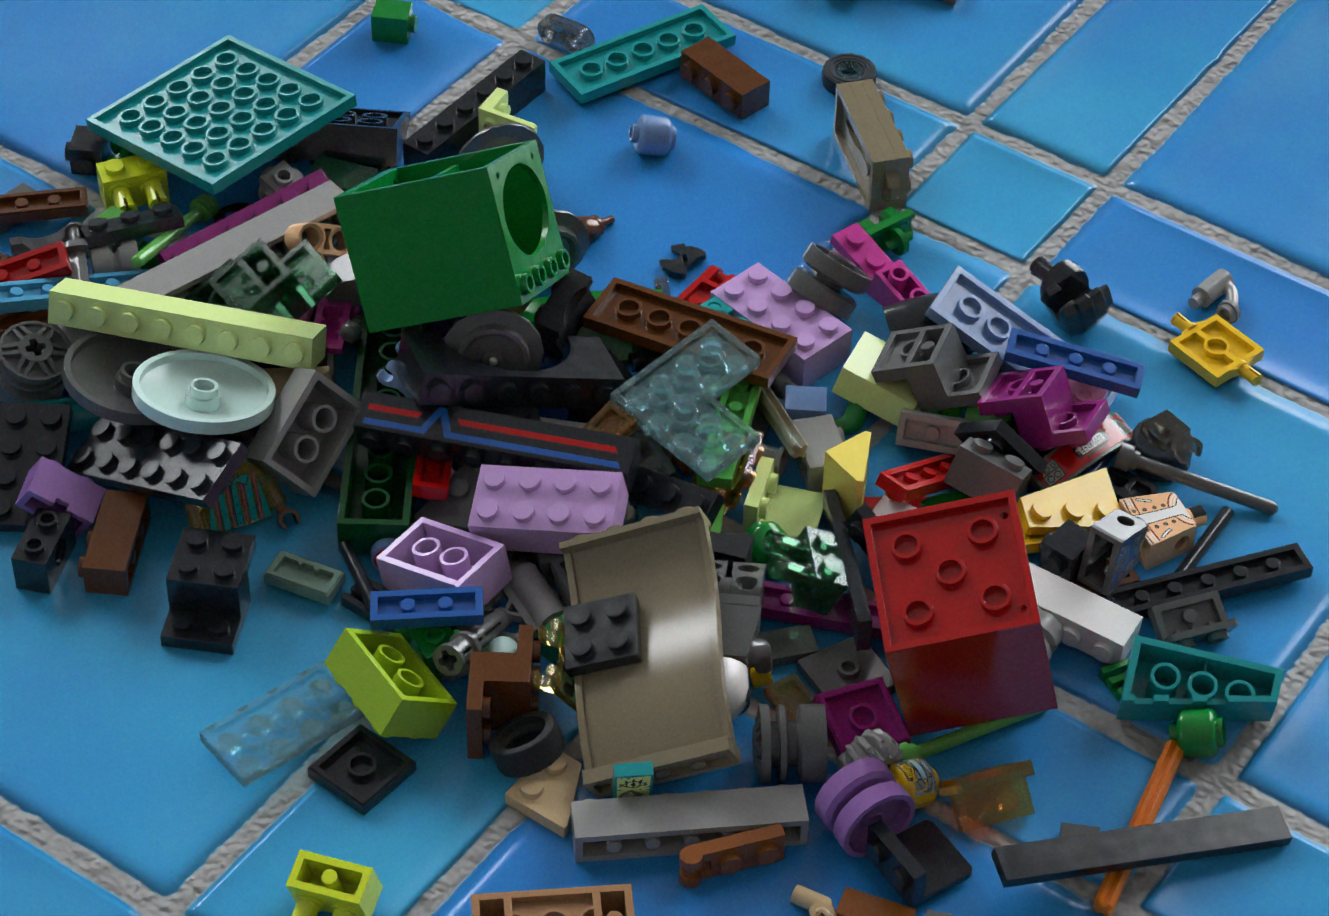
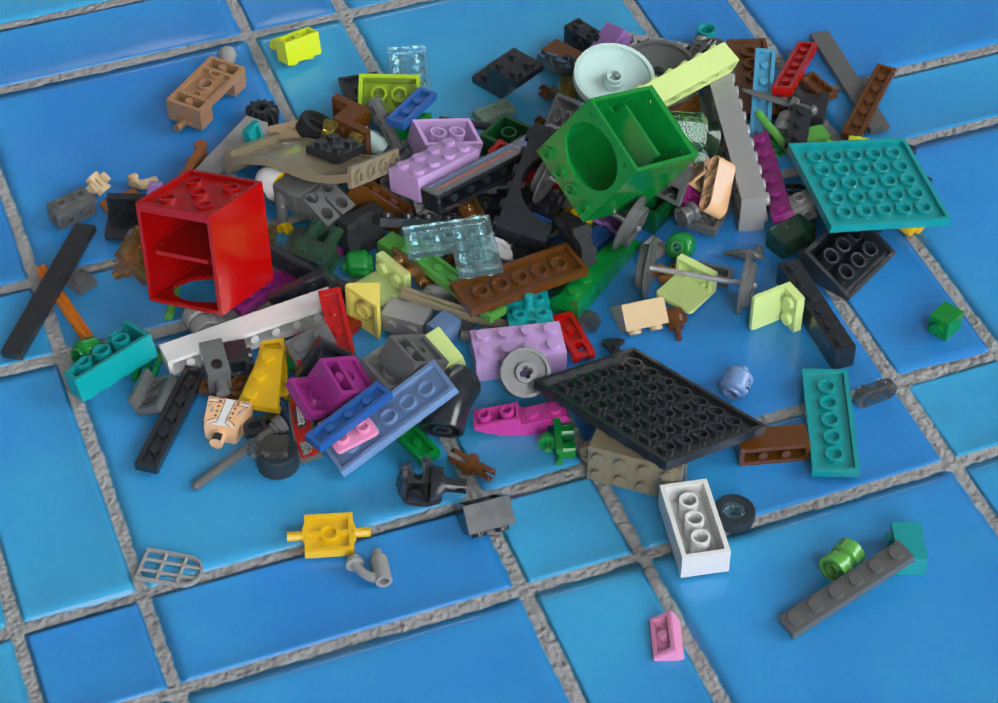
camera: 125 degrees right, 0 degrees up
(538, 844) = (263, 111): none -> black gear
(614, 253) = (640, 314): none -> tan slope
(794, 148) = (650, 408): none -> black plate
(920, 73) = (694, 528): none -> white brick
(996, 278) = (472, 465): none -> reddish brown arm
(1051, 236) = (485, 514): none -> slope
(1060, 62) = (666, 637): none -> bright pink slope
(1207, 539) = (201, 441): black piece -> none

